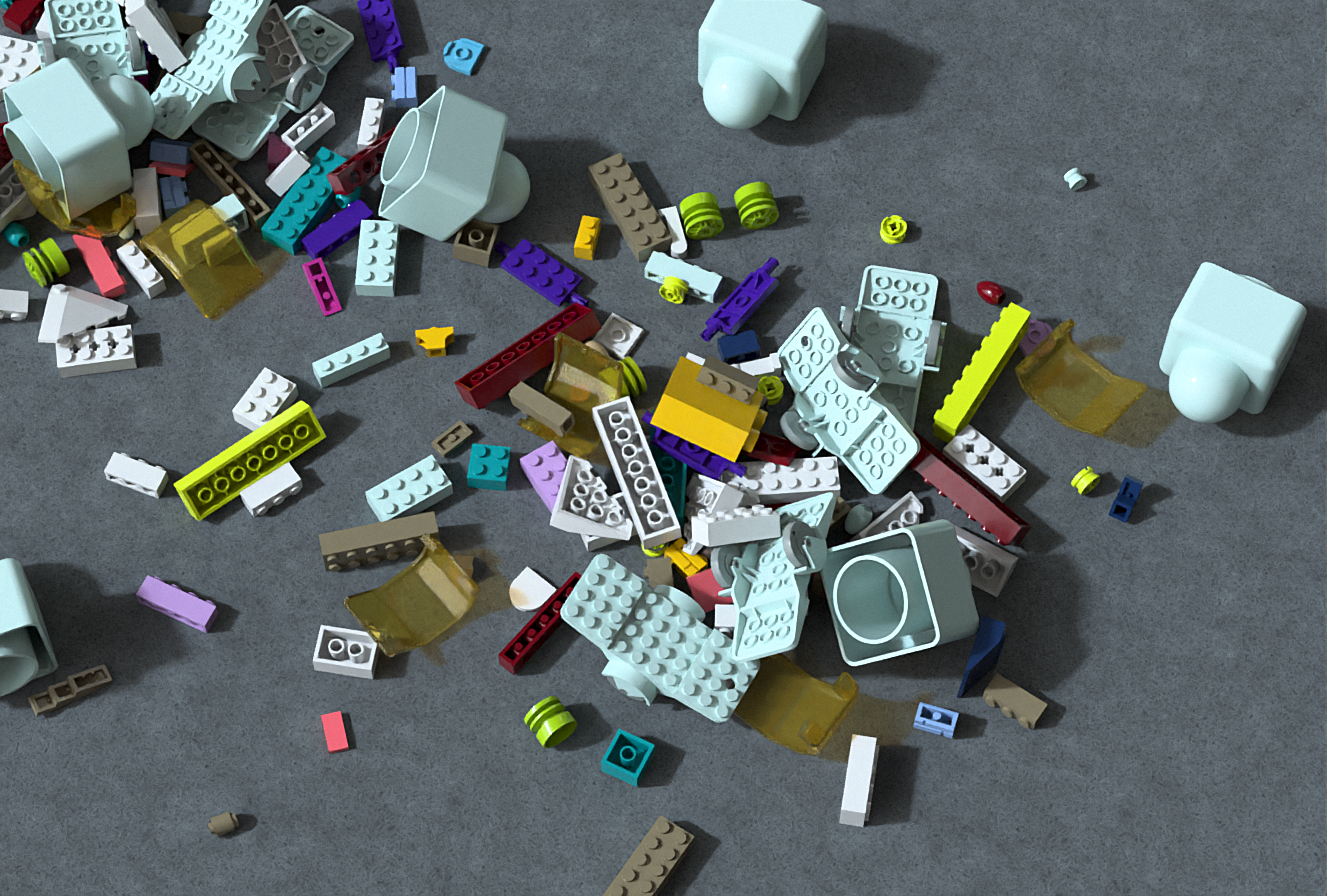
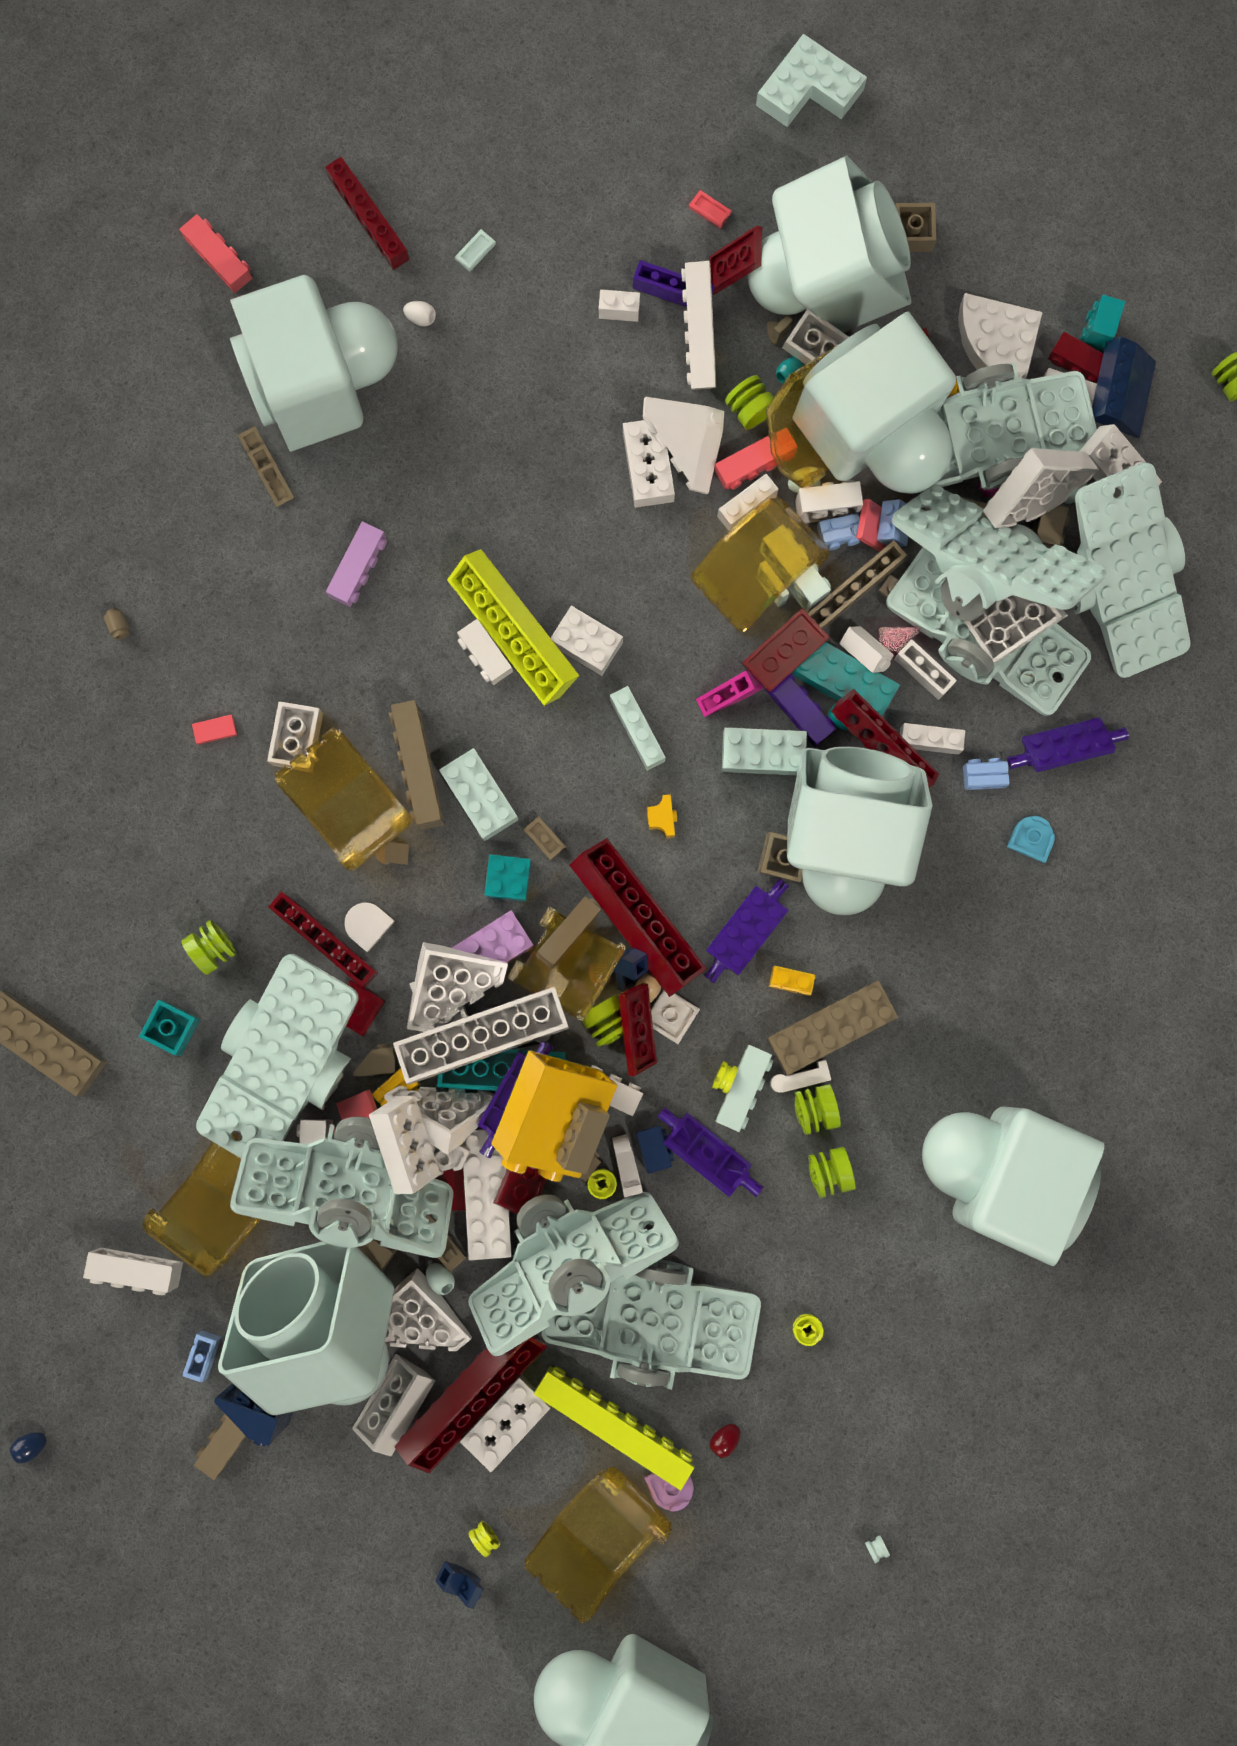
camera: 90 degrees right, 20 degrees up
(136, 474) = (504, 514): white brick -> none
(286, 232) = (785, 650): none -> dark red tile
(633, 351) = (638, 1029): none -> dark red tile
(1028, 876) = (27, 1447): none -> dark blue animal

